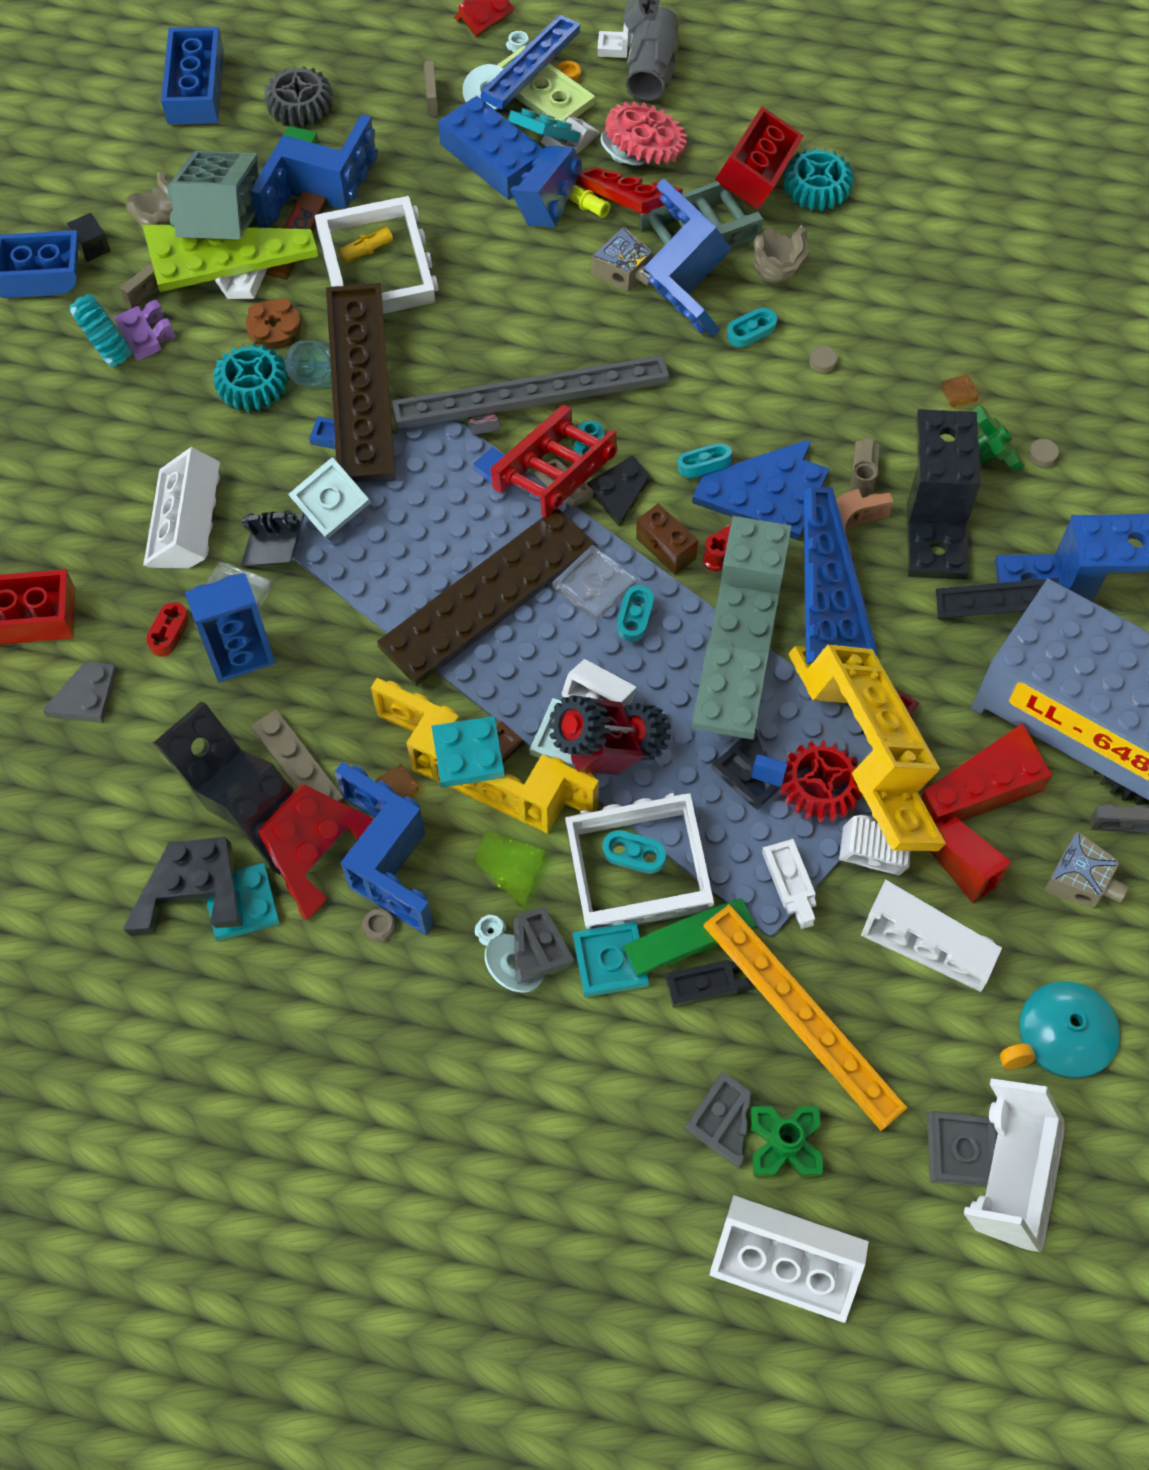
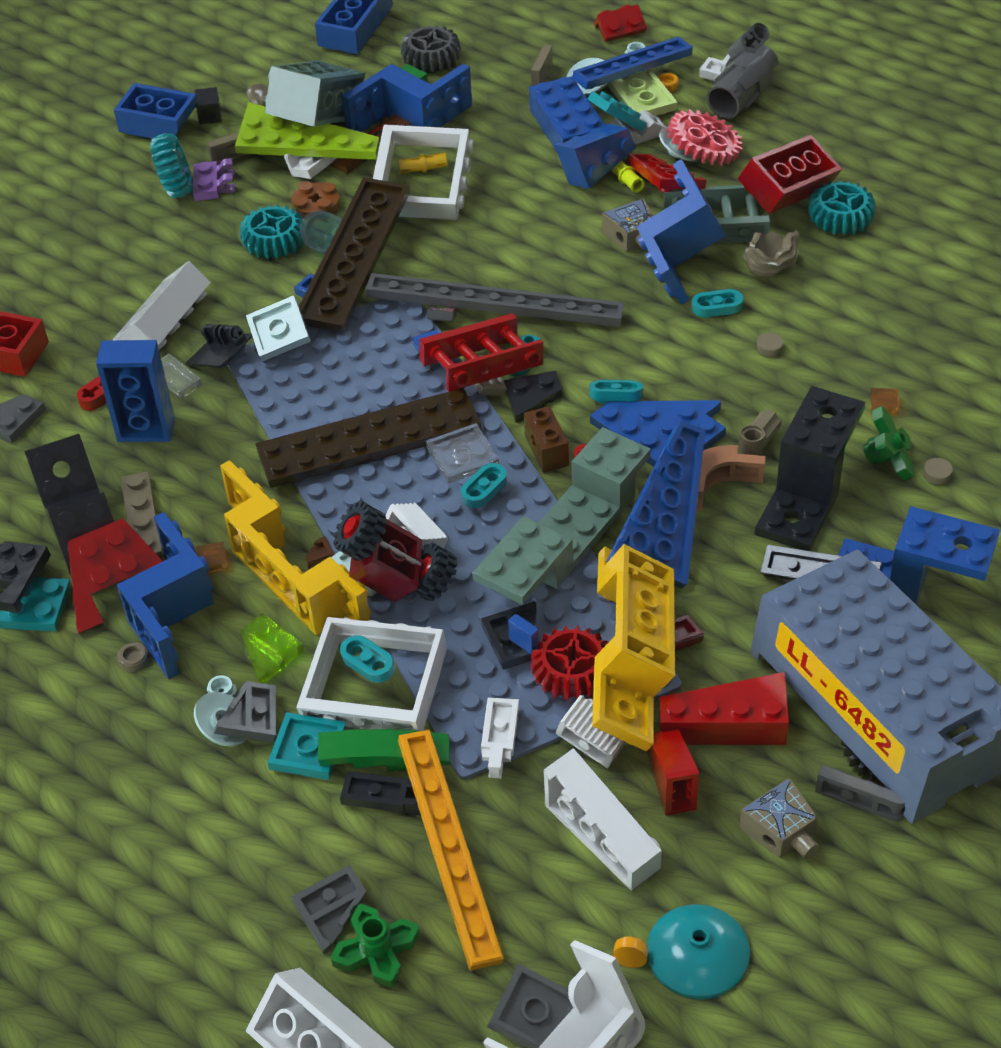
camera: 25 degrees right, 15 degrees down
(467, 751) = (267, 534): teal plate -> none

